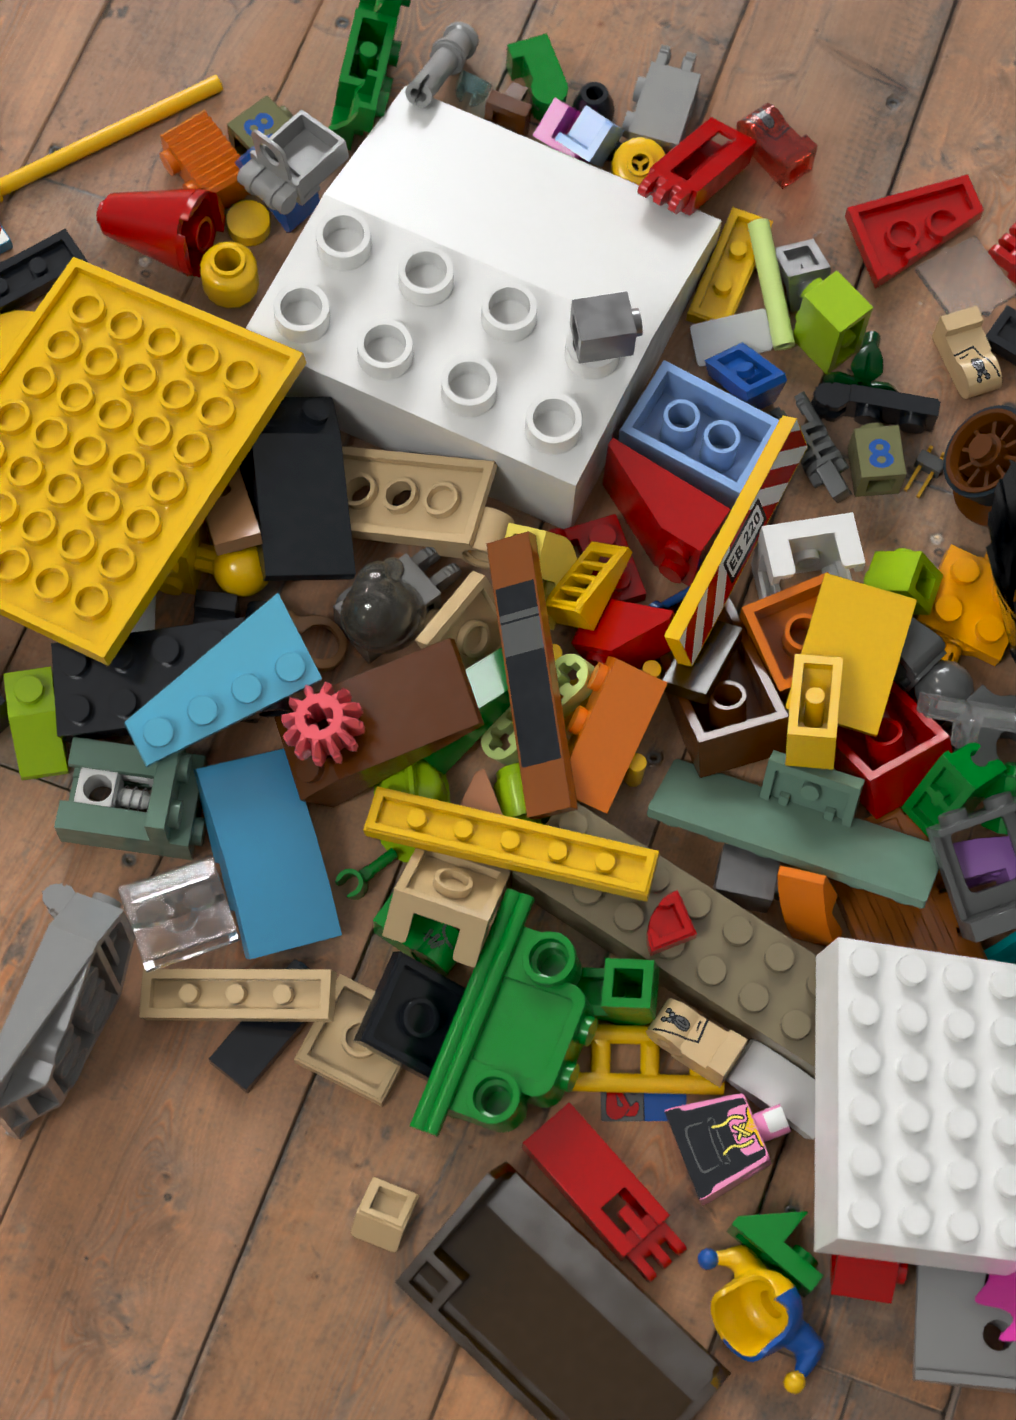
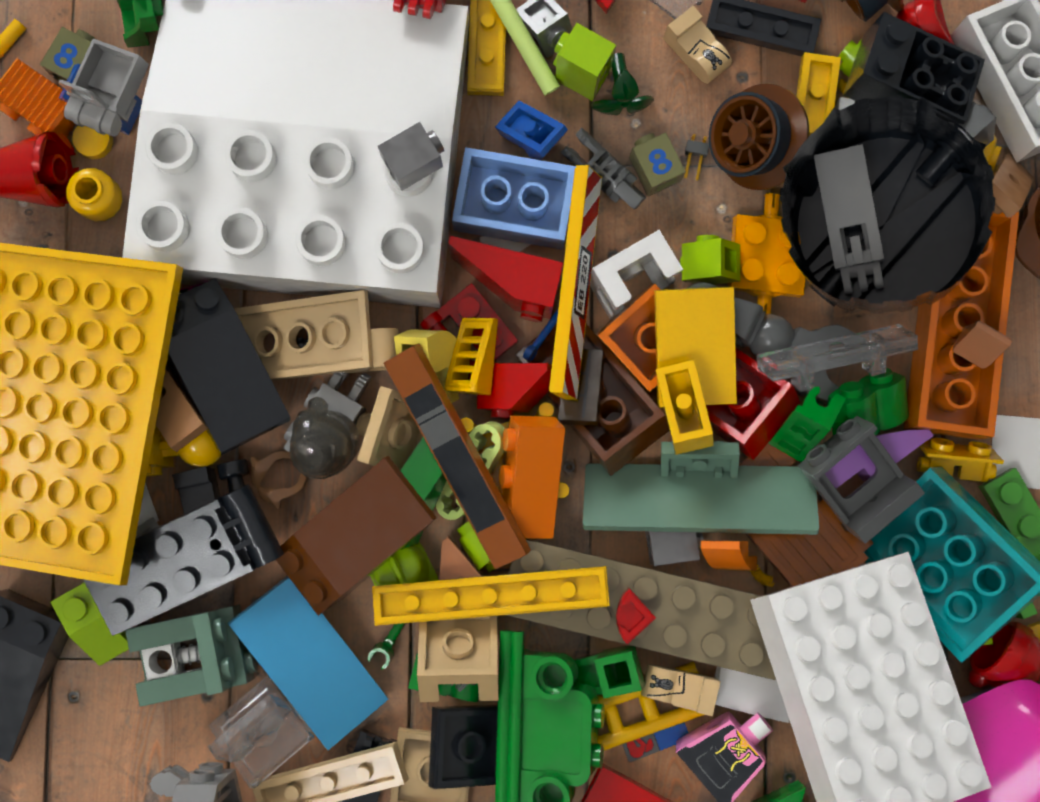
camera: 20 degrees left, 15 degrees up
(232, 681) = (232, 553): medium azure wing -> none
(340, 715) = (297, 567): coral gear -> none
(723, 333) = (503, 97): white sticker -> none
(875, 405) = (638, 119): black hinge -> none

